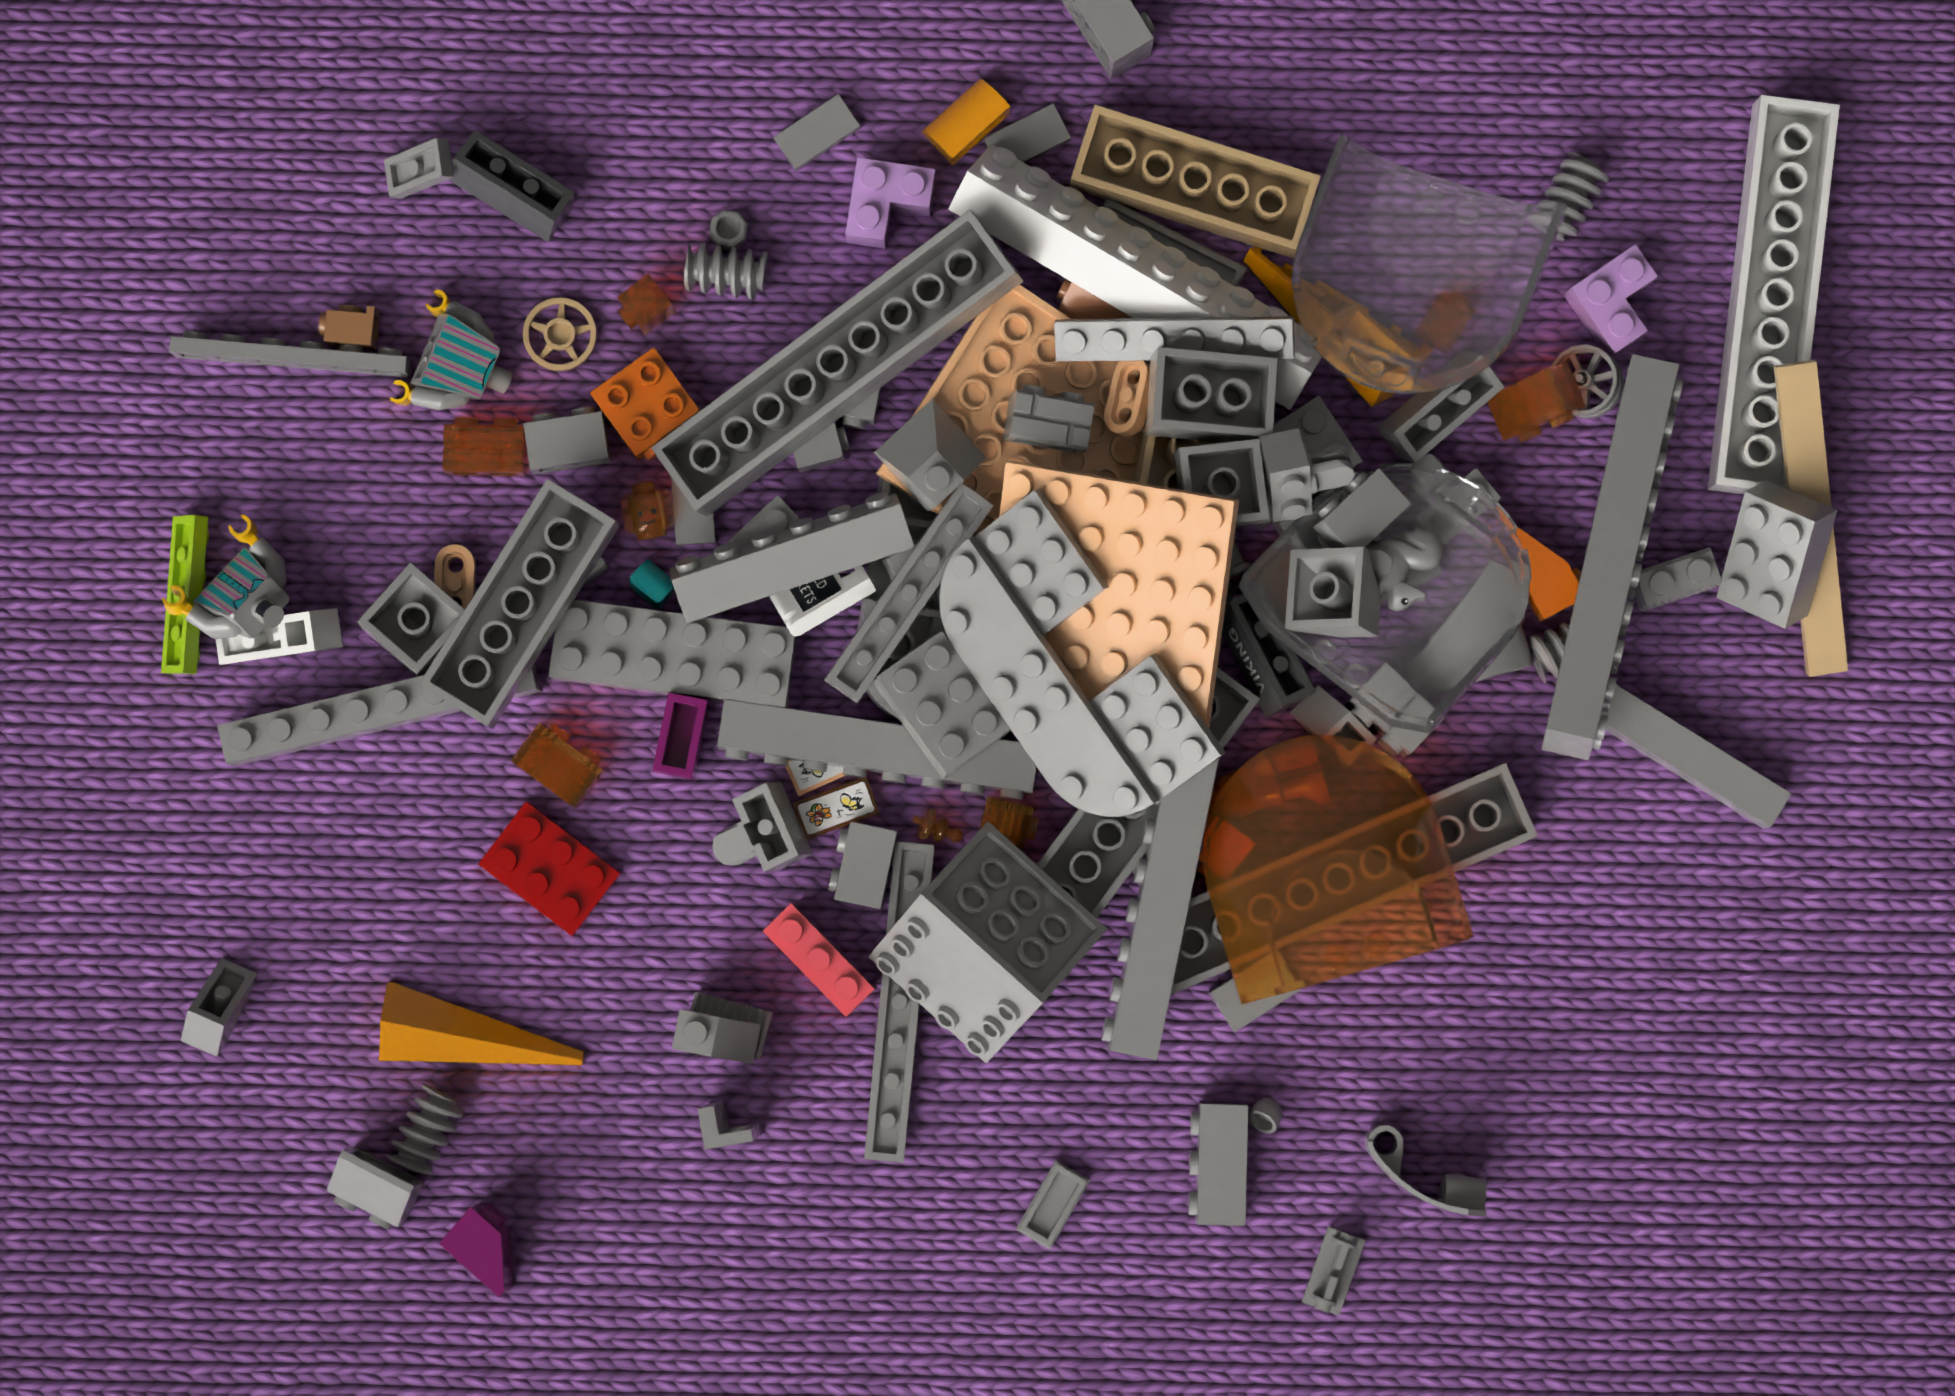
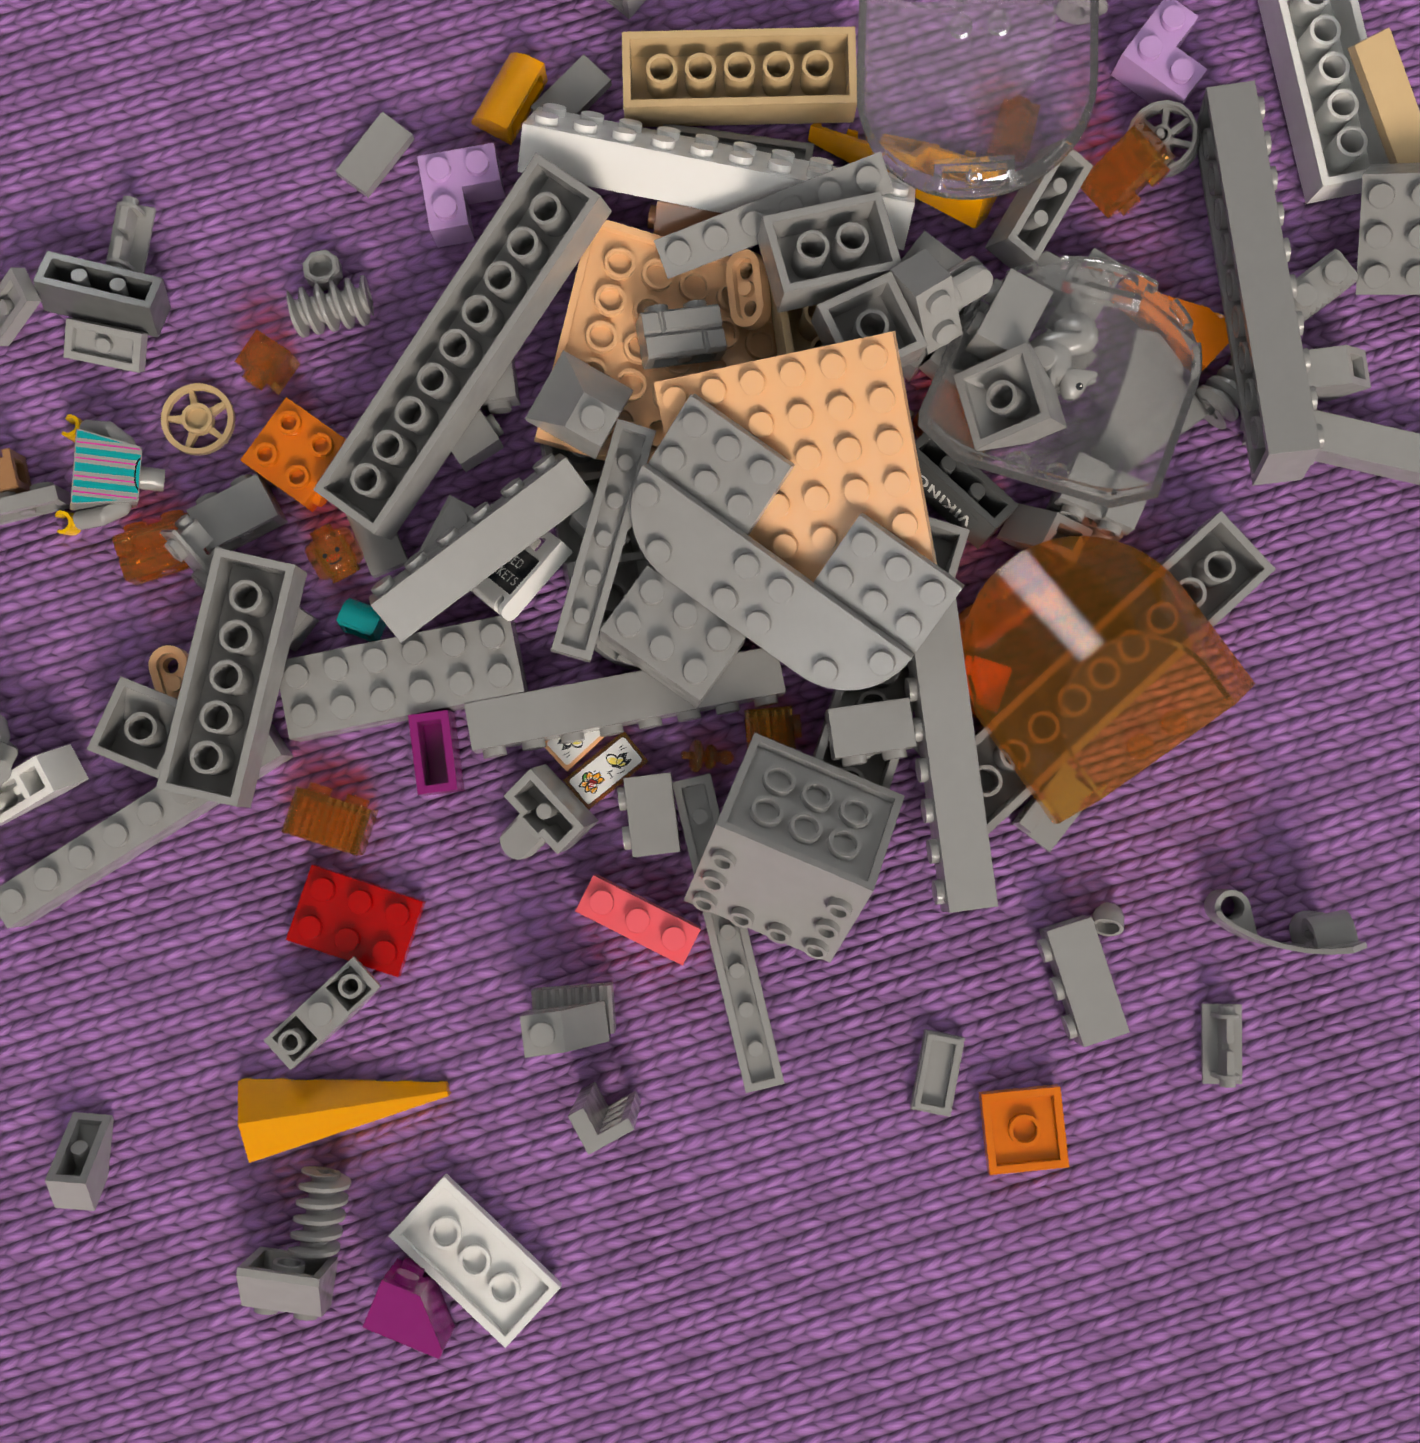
camera: 20 degrees left, 0 degrees up
(493, 945) = (323, 1013): none -> light grey slope
(496, 233) = (105, 345): none -> light grey plate
(514, 461) = (188, 545): none -> light grey hinge
(553, 135) = (131, 235): none -> light grey hinge
(555, 1227) = (475, 1260): none -> white plate
(1096, 857) = (870, 730): none -> light grey brick
(1115, 1285) = (1023, 1129): none -> orange plate
(1661, 664) = (1338, 371): none -> light grey slope

